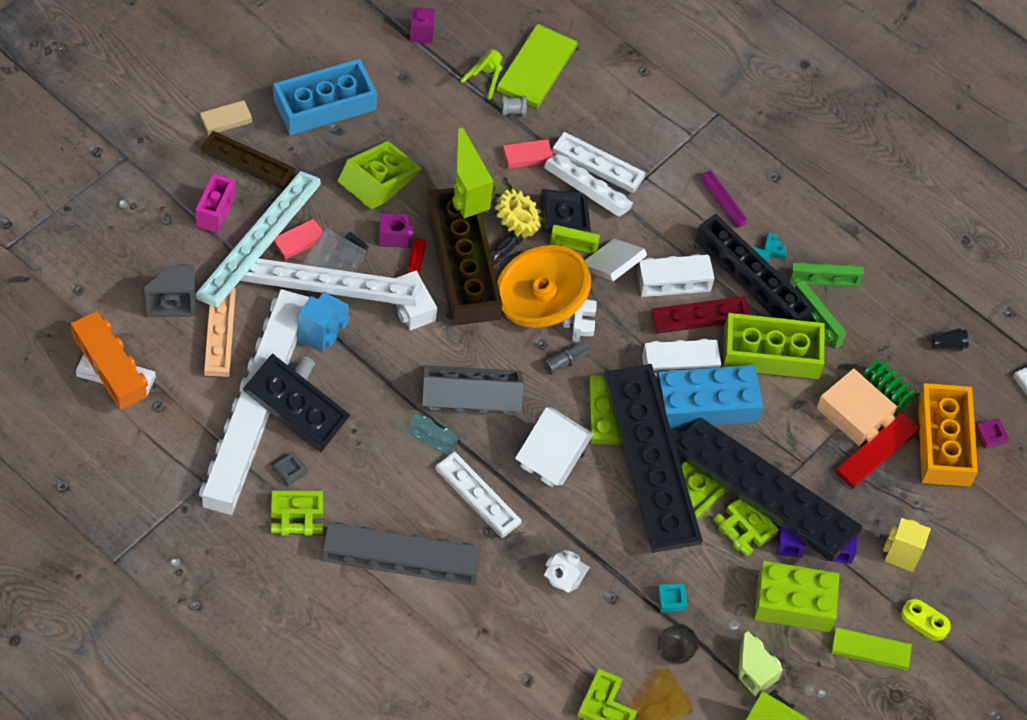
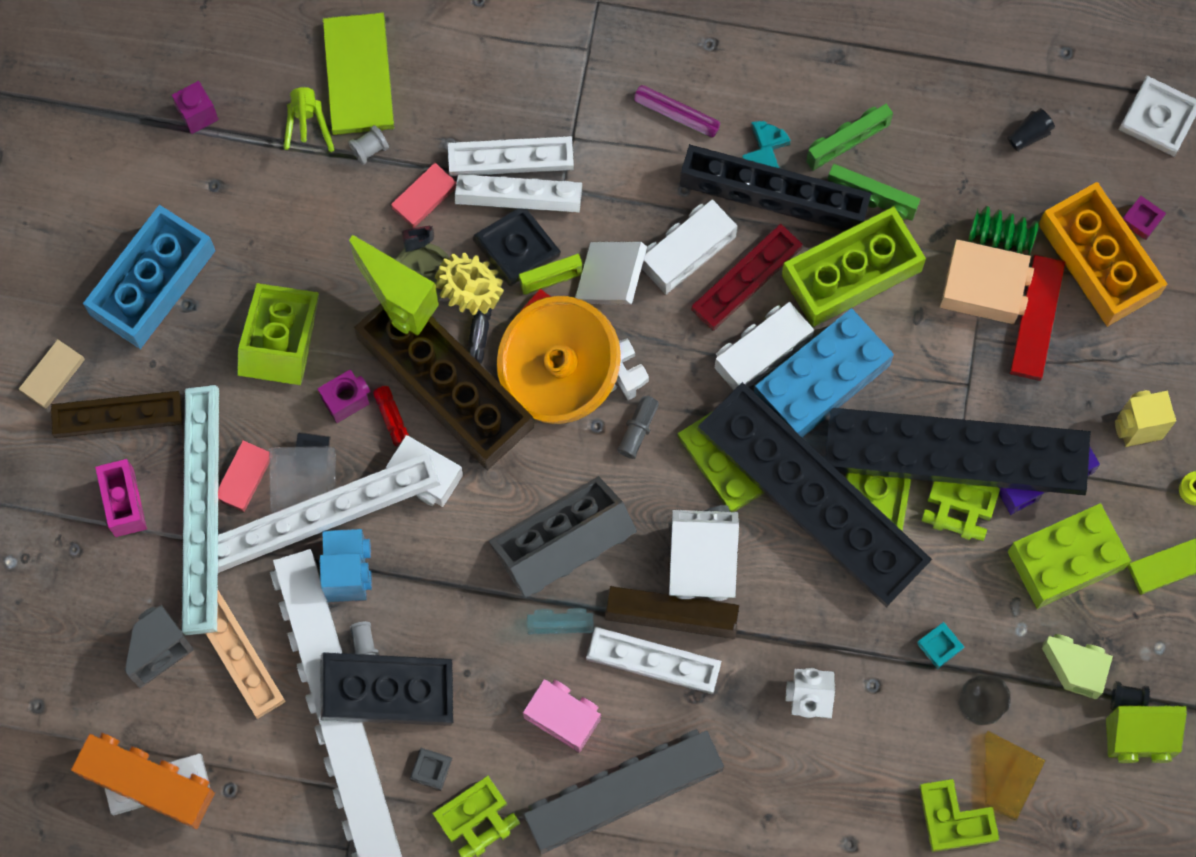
camera: 25 degrees left, 15 degrees up
(395, 487) = (562, 714): none -> bright pink brick
(506, 172) = (417, 237): none -> black tile
(509, 474) = (671, 612): none -> dark brown panel

